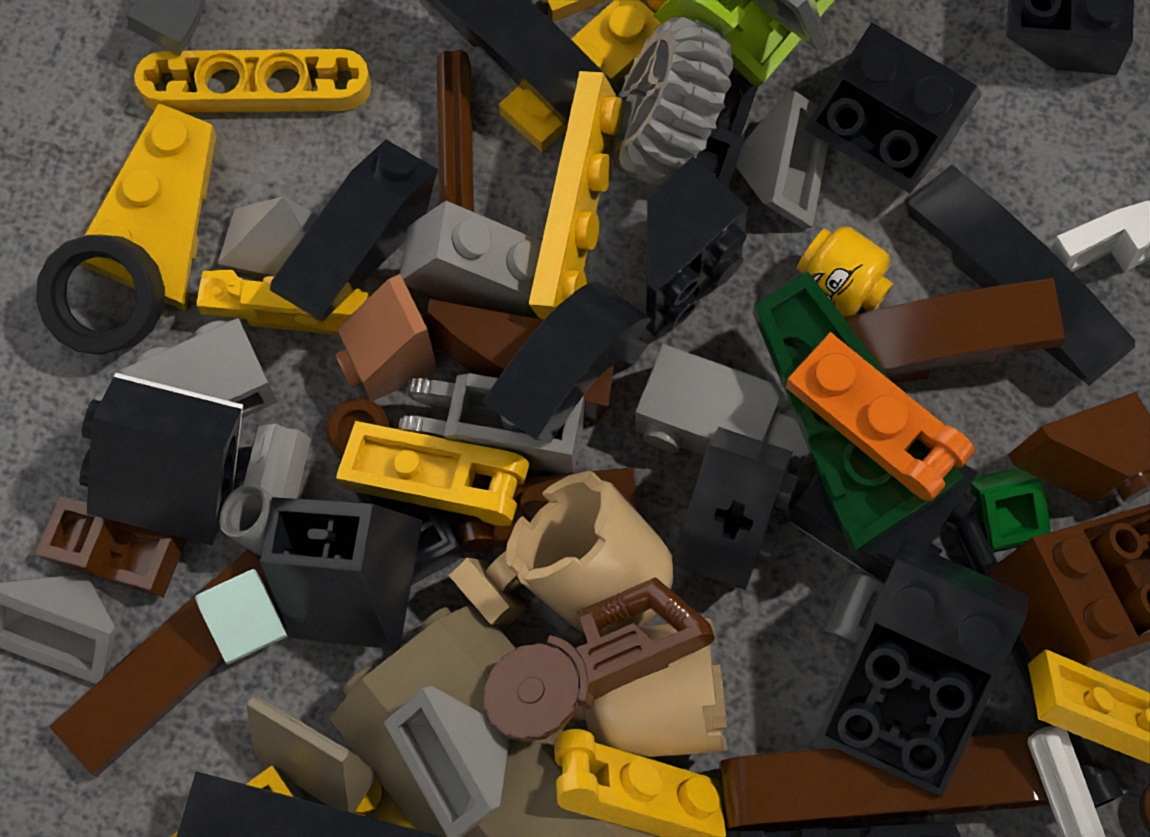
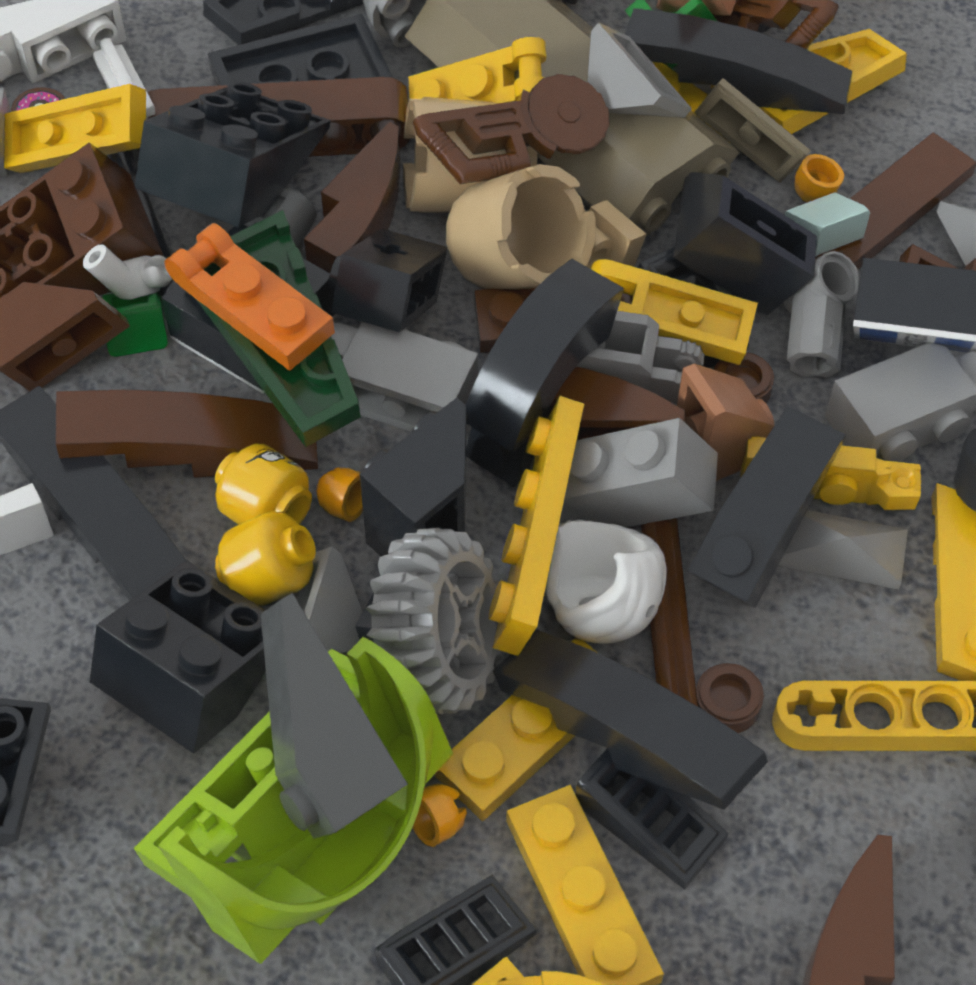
camera: 175 degrees right, 15 degrees down
(228, 694) = (817, 177): none -> light orange hinge
(407, 98) = (731, 695): none -> reddish brown tile
(501, 182) = (604, 580): none -> white piece
(765, 282) = (341, 493): none -> light orange hinge
(774, 634) = (357, 200): none -> reddish brown slope
(833, 194) = (266, 558): none -> yellow head
(1019, 525) = (129, 277): none -> white arm

